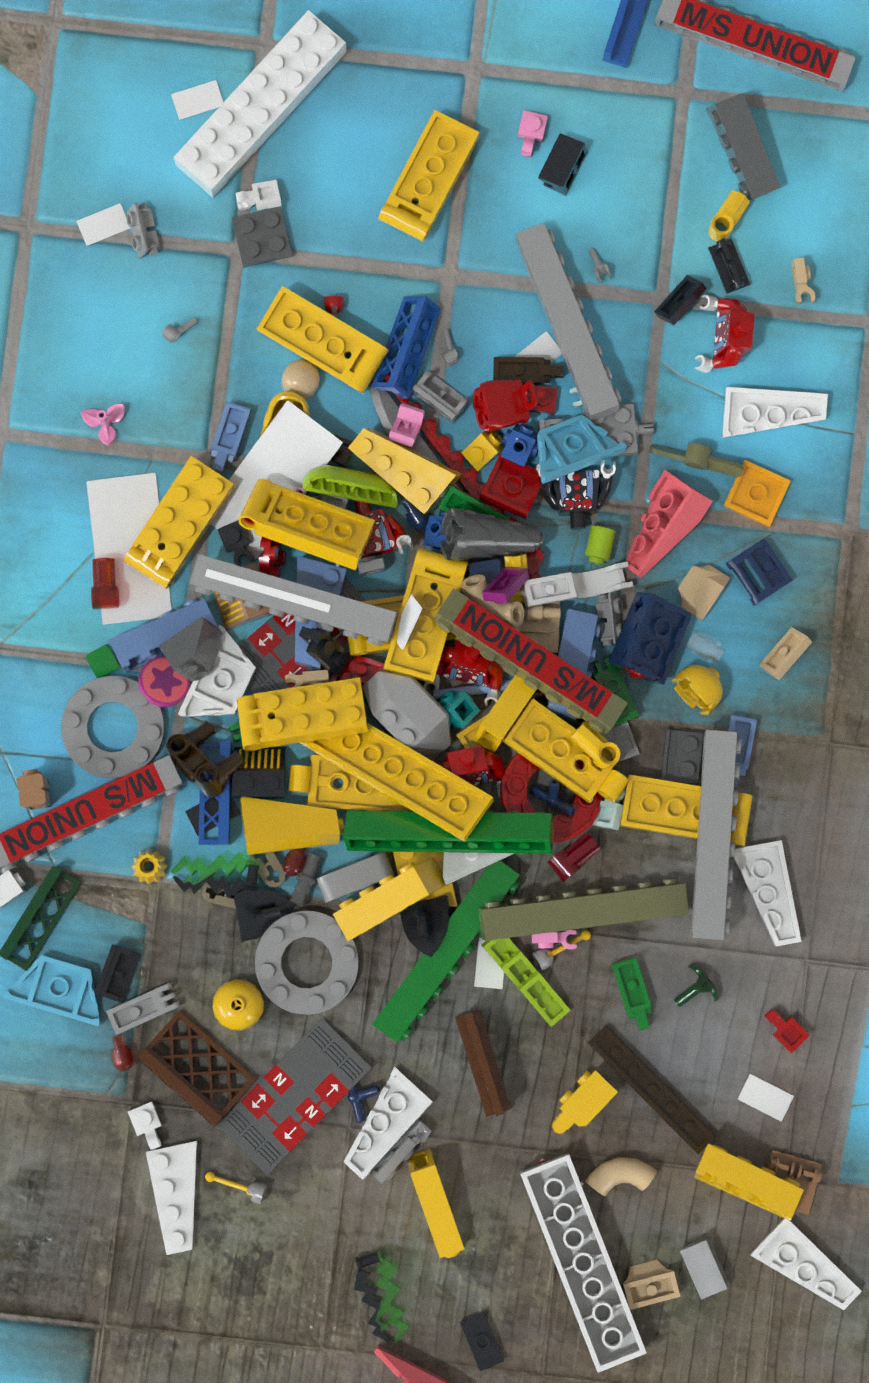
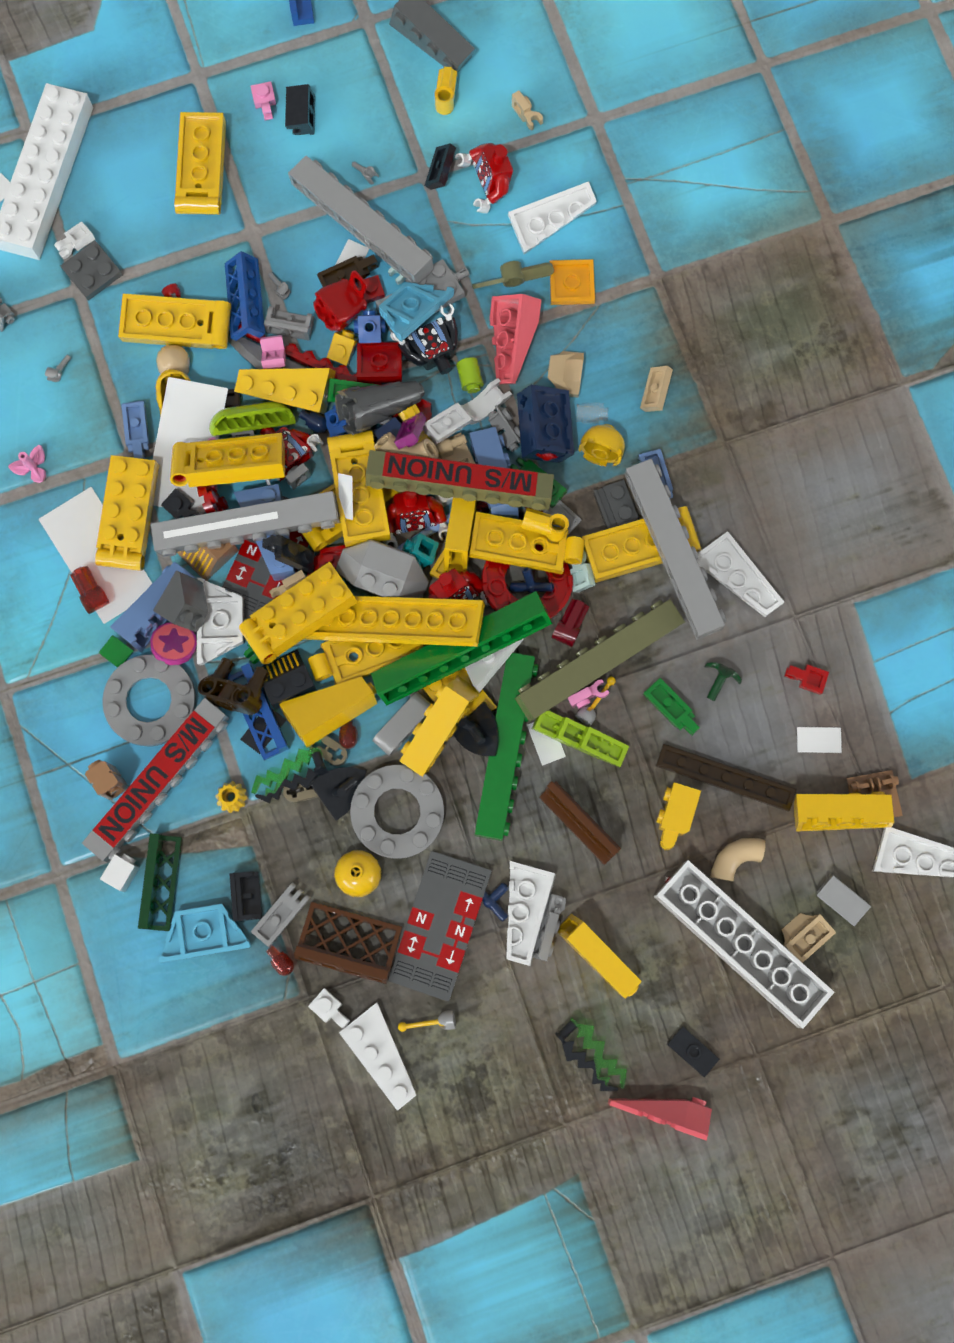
camera: 20 degrees left, 5 degrees down
(306, 880) = (364, 745): dark grey pin -> none
(728, 265) = (464, 126): black hinge -> none
(766, 567) = (607, 331): dark blue plate -> none

